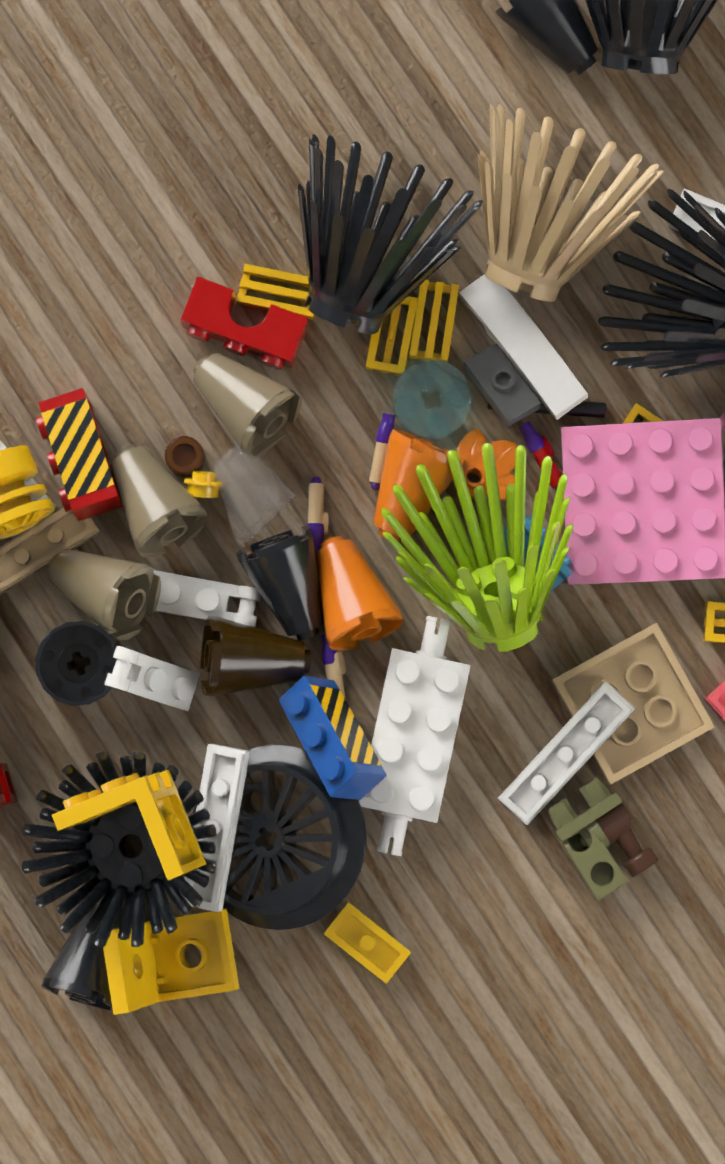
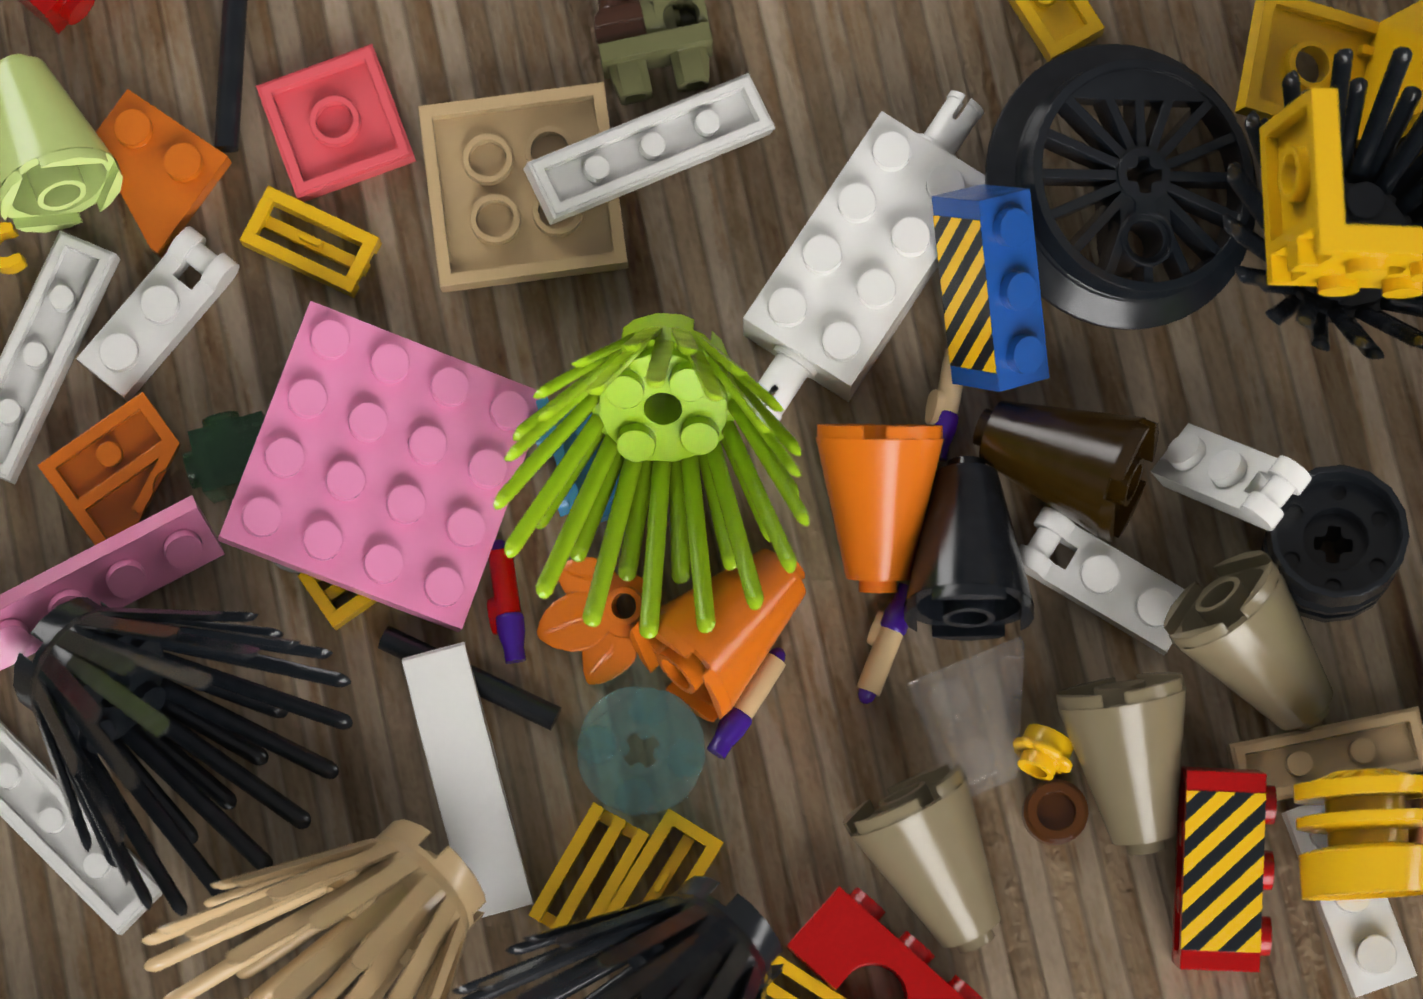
camera: 155 degrees left, 5 degrees down
(222, 794) = (1197, 243): white tile -> none
(502, 385) = (525, 730): dark grey plate -> none

